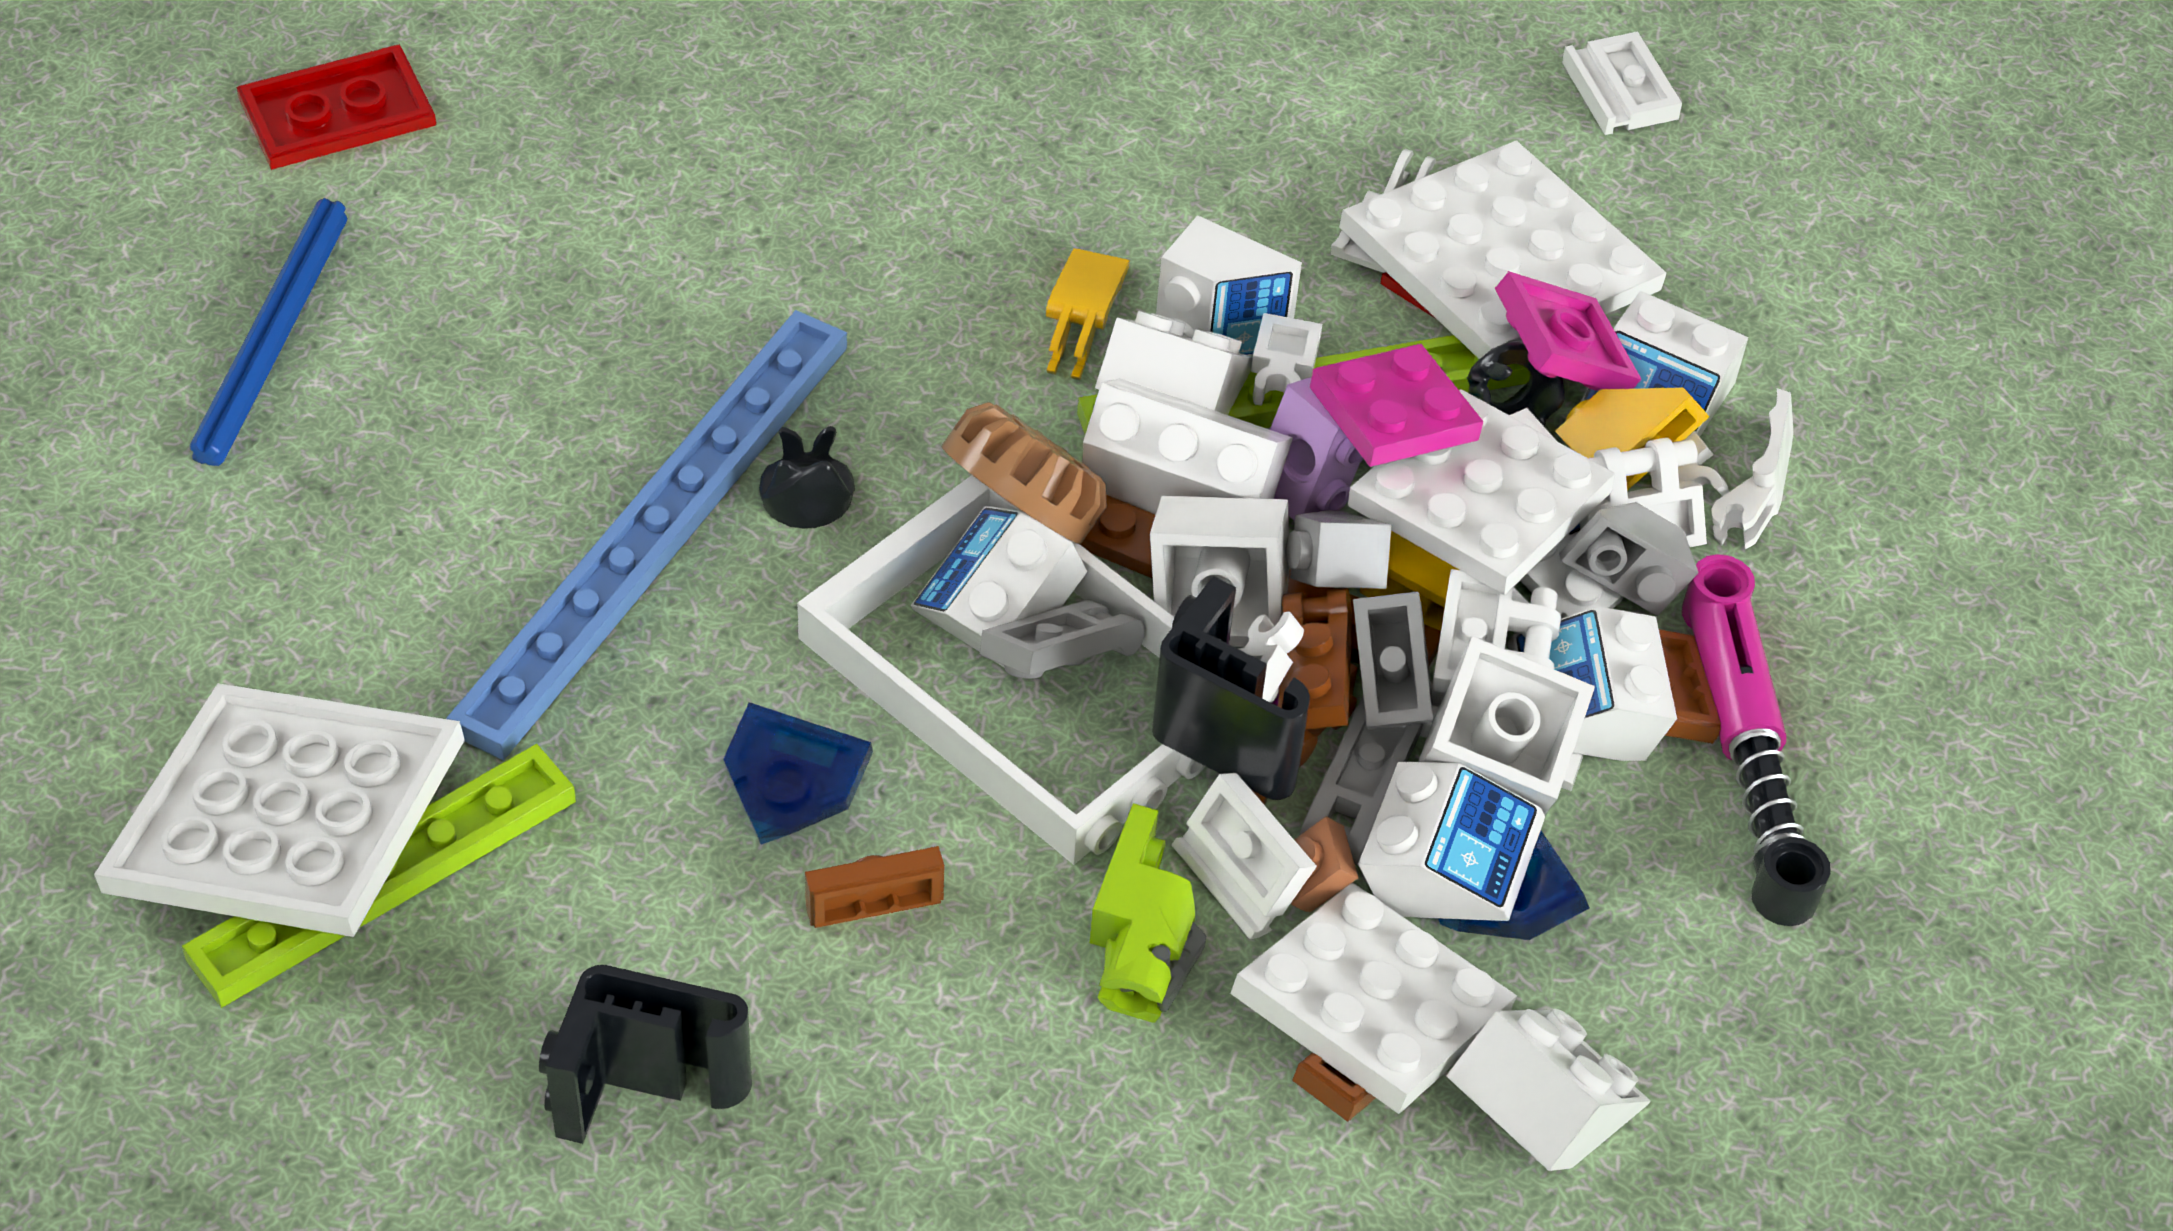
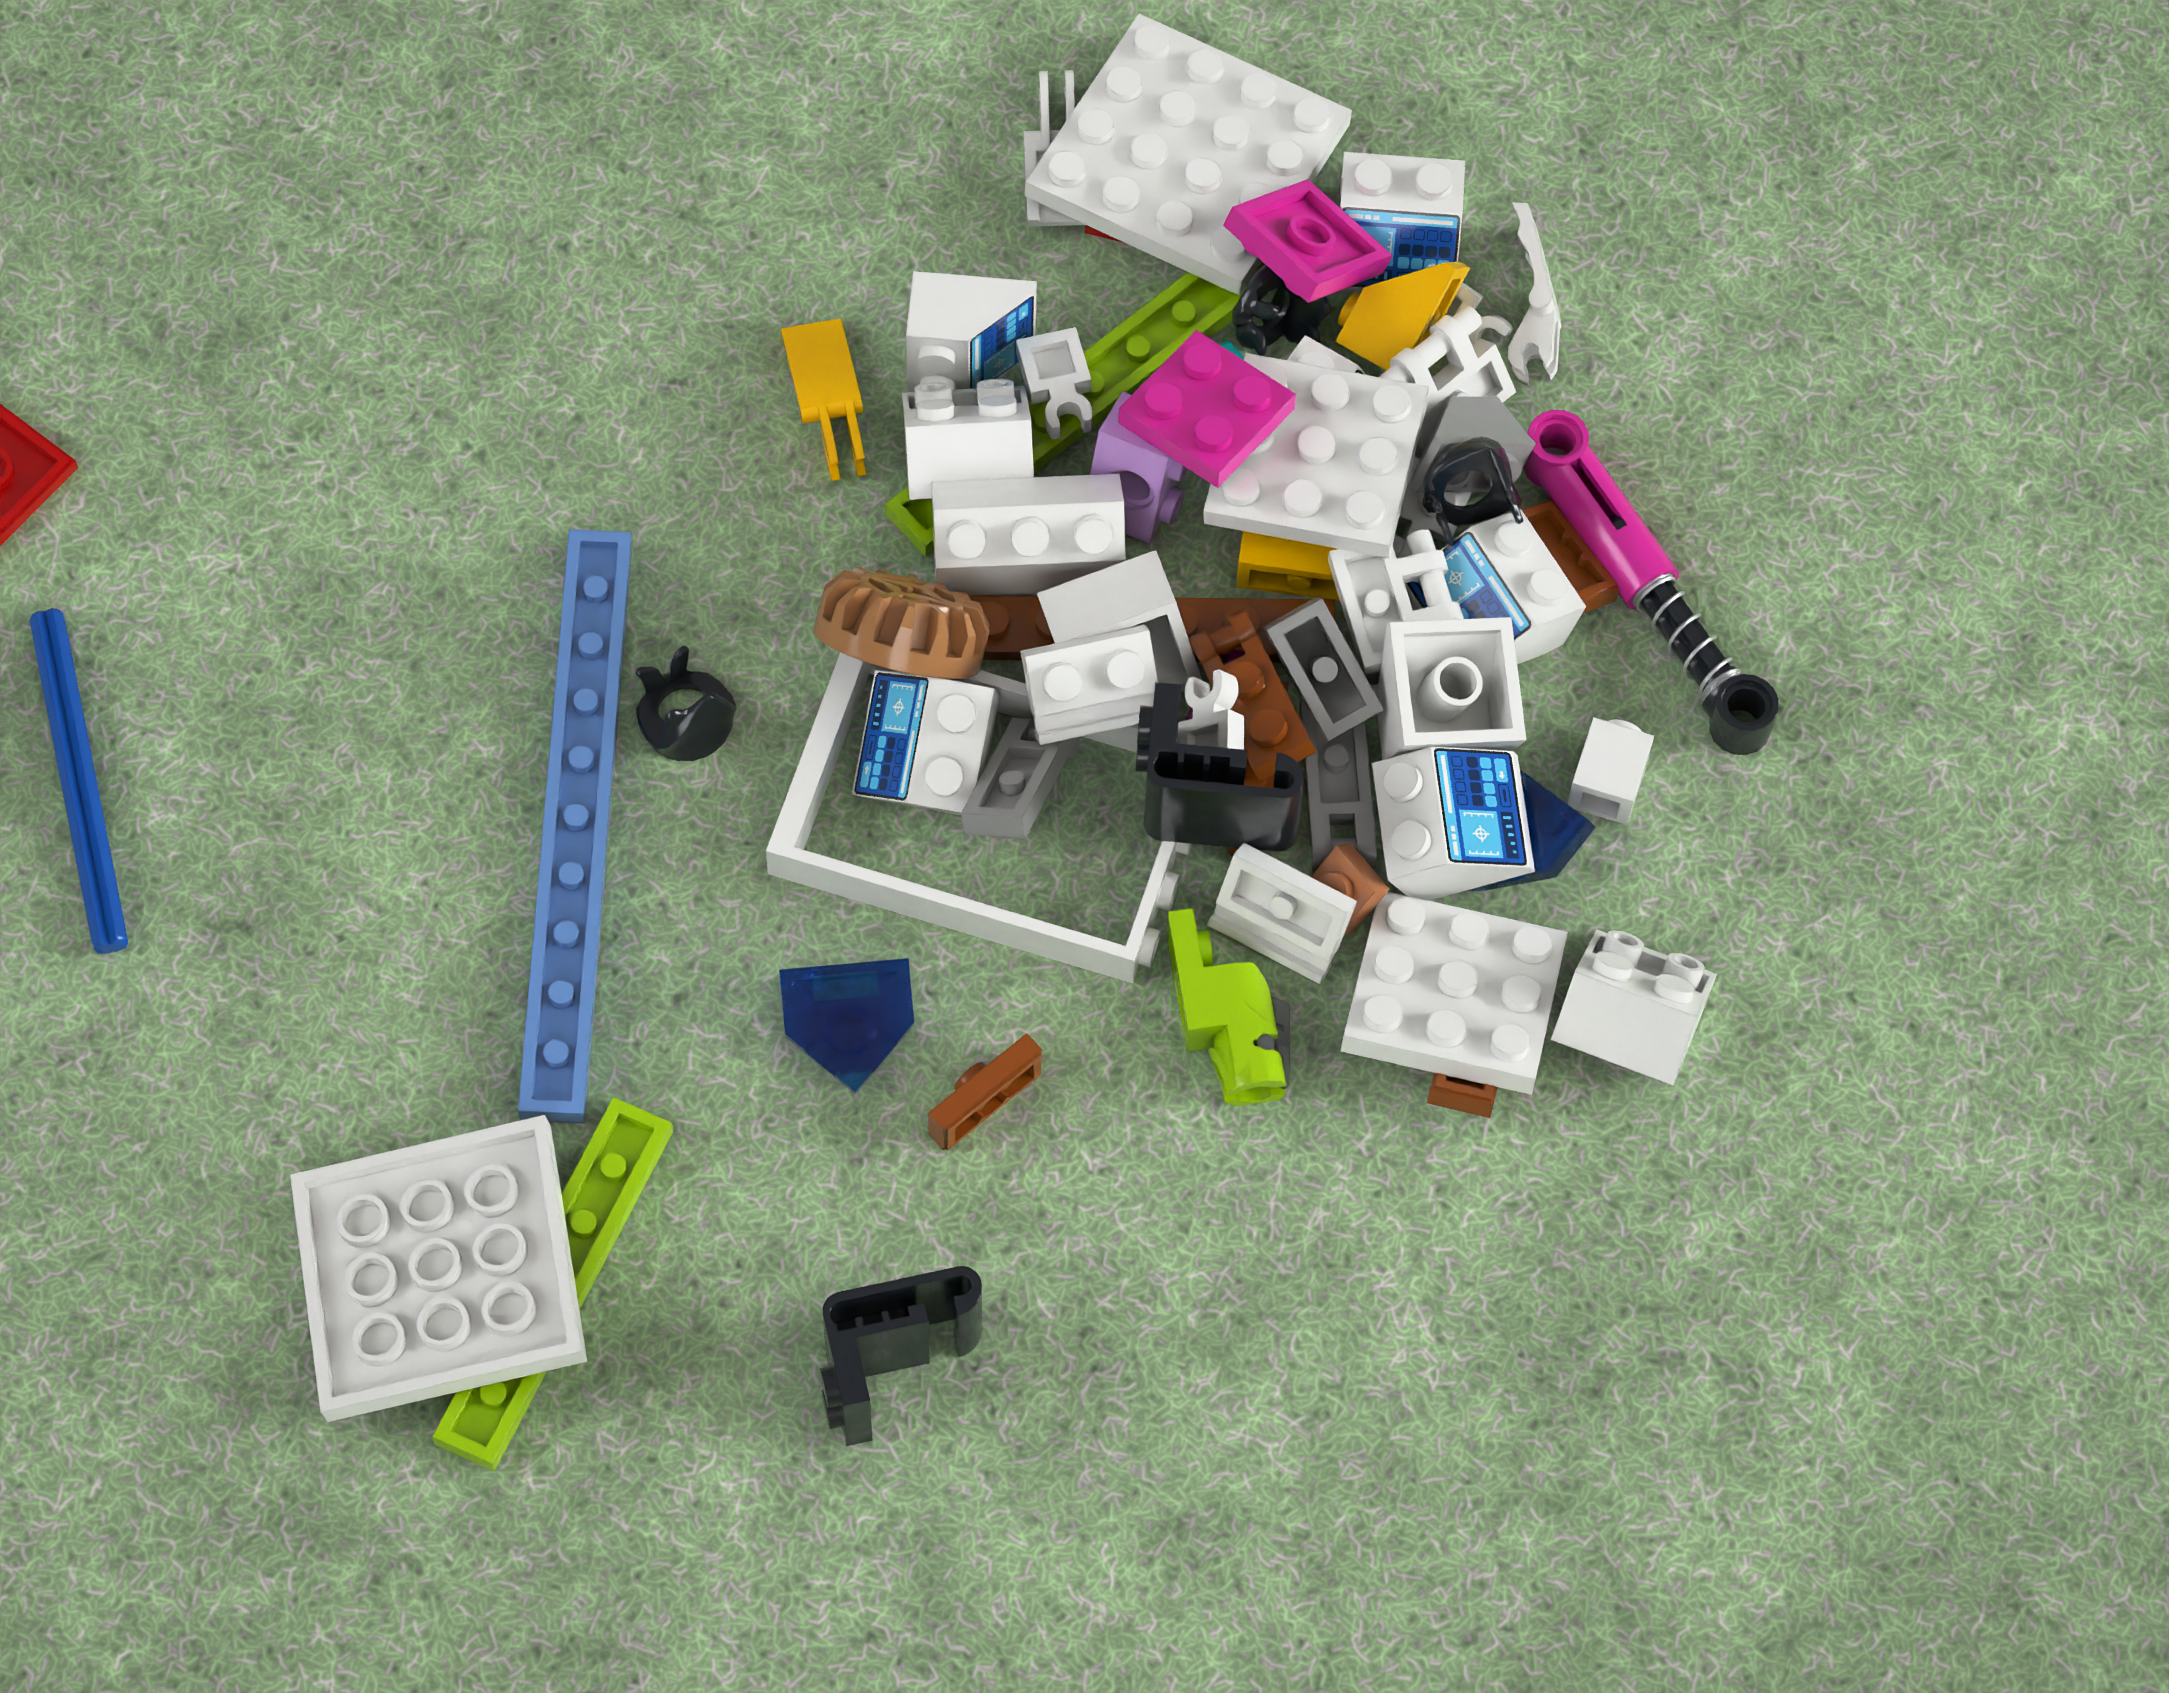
camera: 25 degrees left, 15 degrees up
(1153, 573) = (1089, 683): none -> white plate
(1339, 550) = (1218, 571): slope -> none
(1631, 541) = (1478, 455): none -> black piece
(1632, 873) = (1610, 769): none -> white brick

